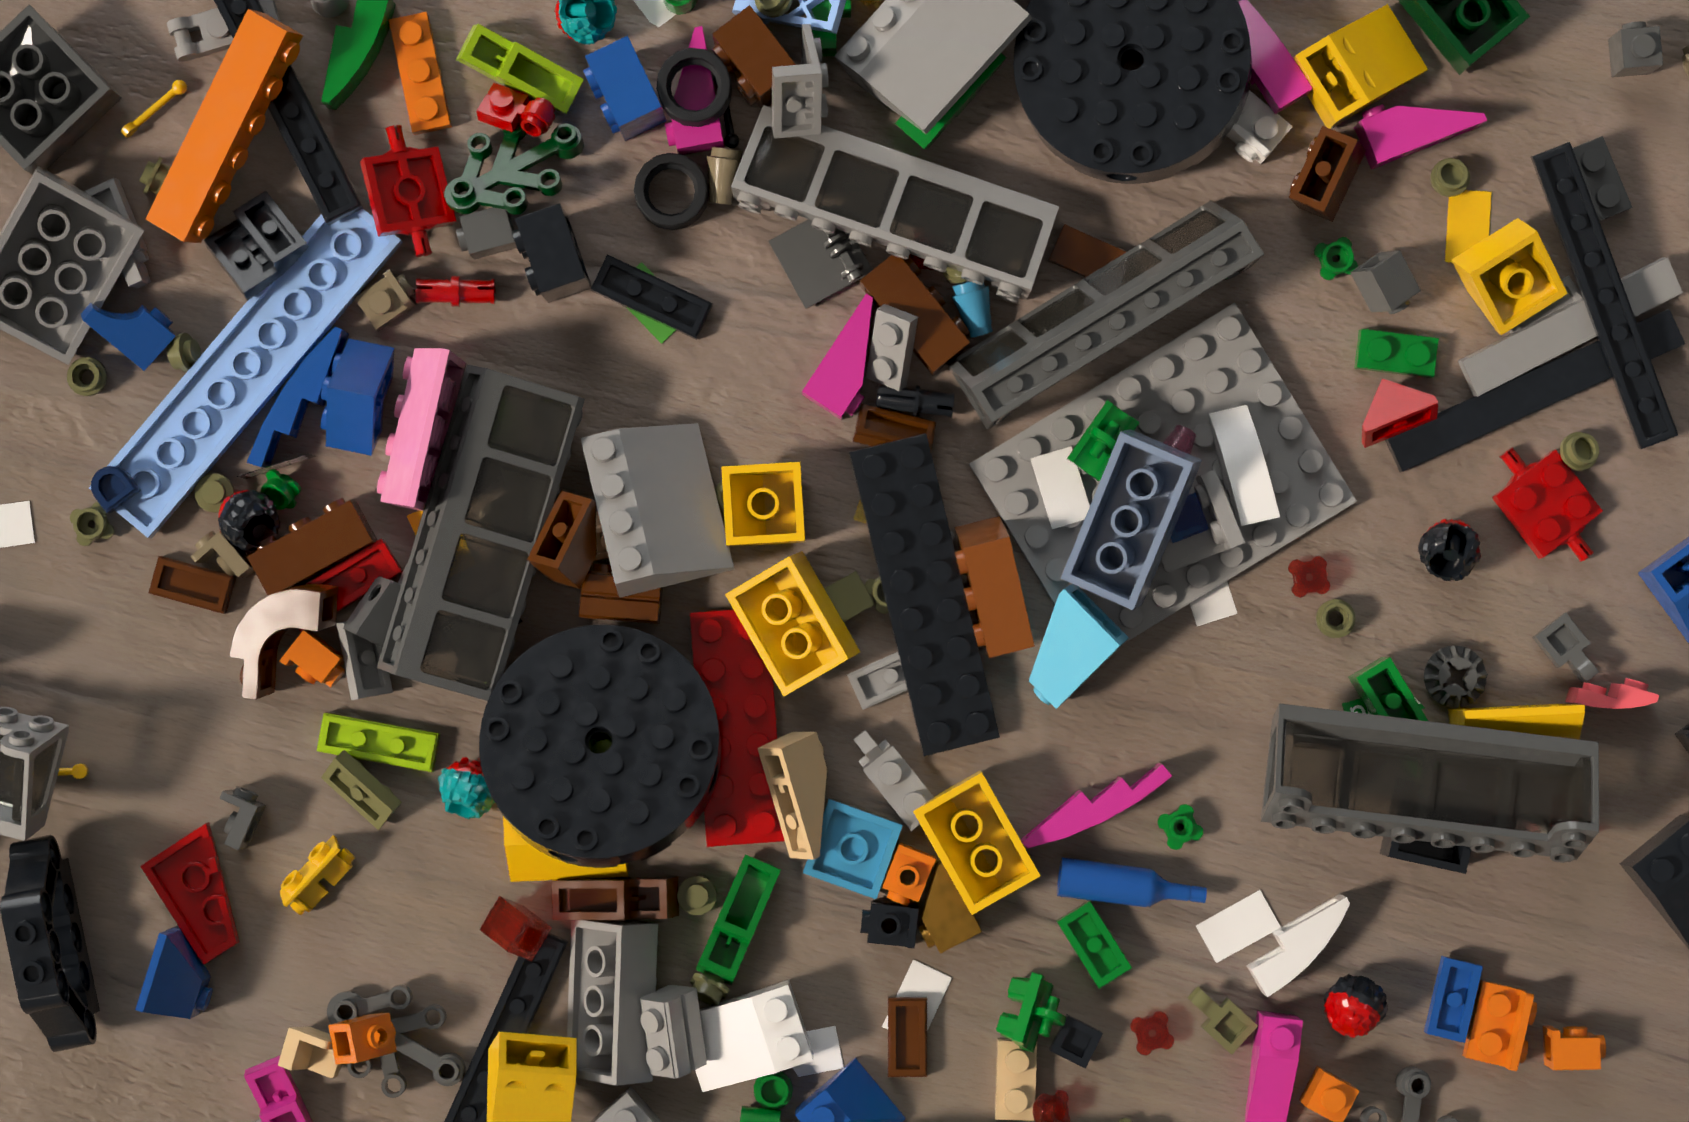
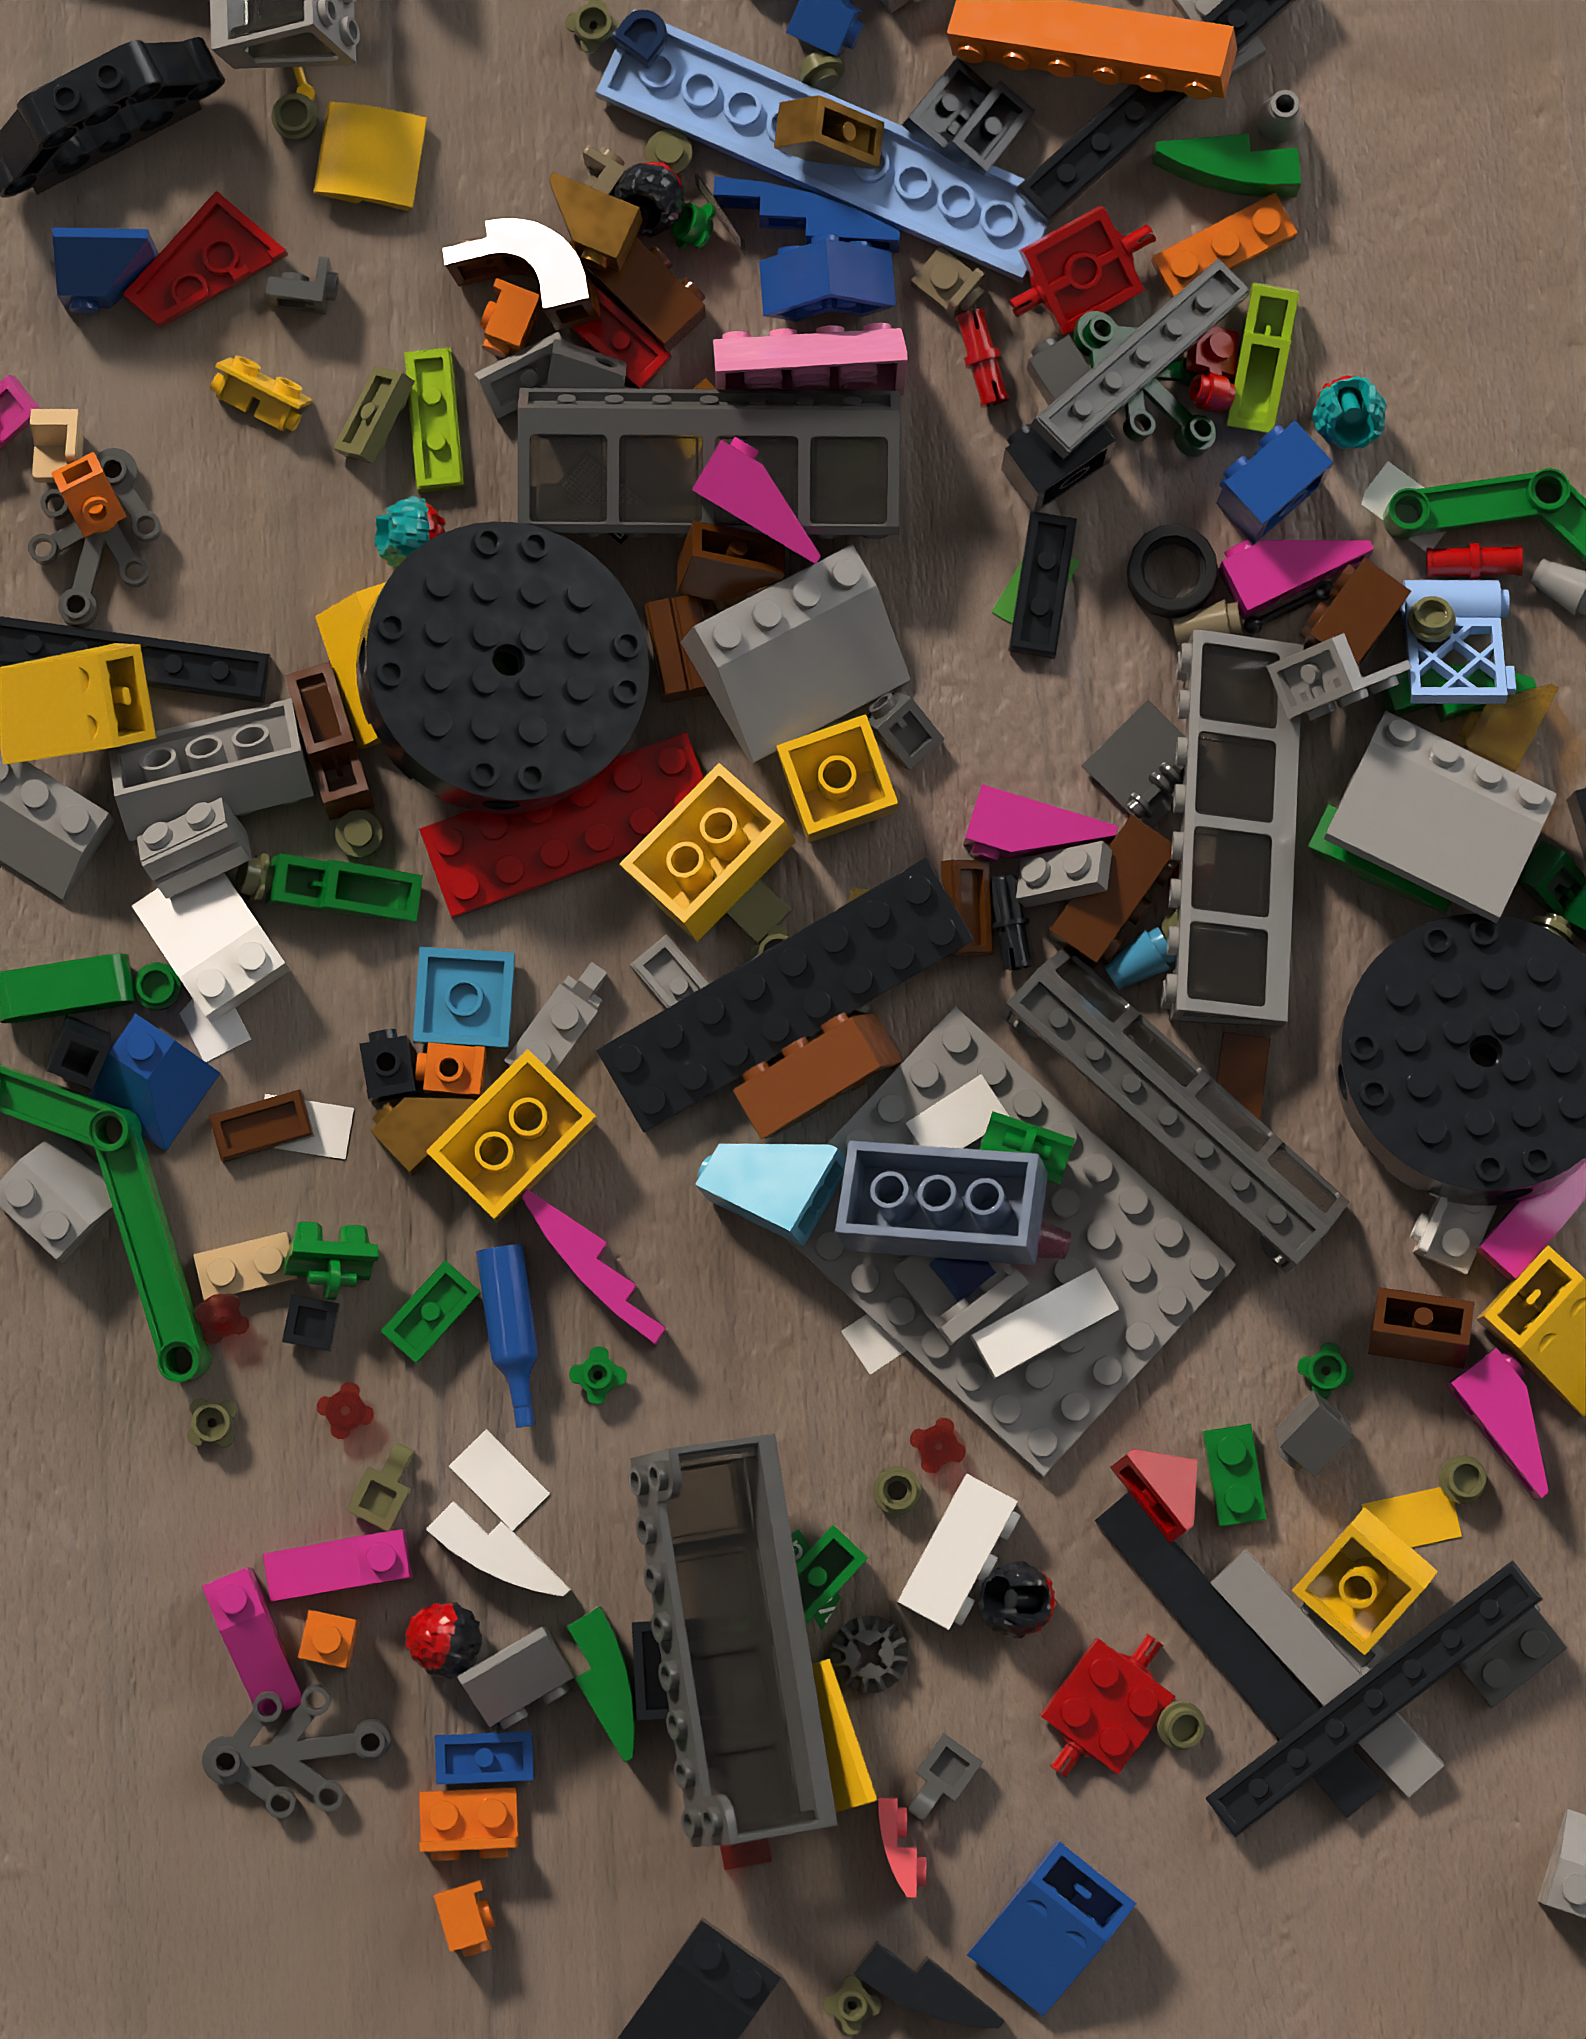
camera: 70 degrees right, 5 degrees down
(96, 785) = (294, 116): none -> olive plate
(146, 733) = (370, 155): none -> yellow slope
(192, 584) = (554, 150): reddish brown tile -> none
(238, 360) = (828, 133): none -> pearl gold slope
(259, 567) = (596, 222): none -> pearl gold slope
(497, 164) = (1140, 358): none -> dark grey tile
(515, 928) = (263, 634): clear red brick -> none
(518, 509) = (748, 492): none -> dark pink slope
(685, 58) = (1304, 522): black tyre -> none
(736, 440) = (903, 728): none -> dark grey bracket
(797, 786) = (517, 912): tan slope -> none
(1399, 584) = (959, 1553): none -> white brick
(1401, 957) = (517, 1678): none -> light grey slope
(1420, 887) = (607, 1681): none -> green slope

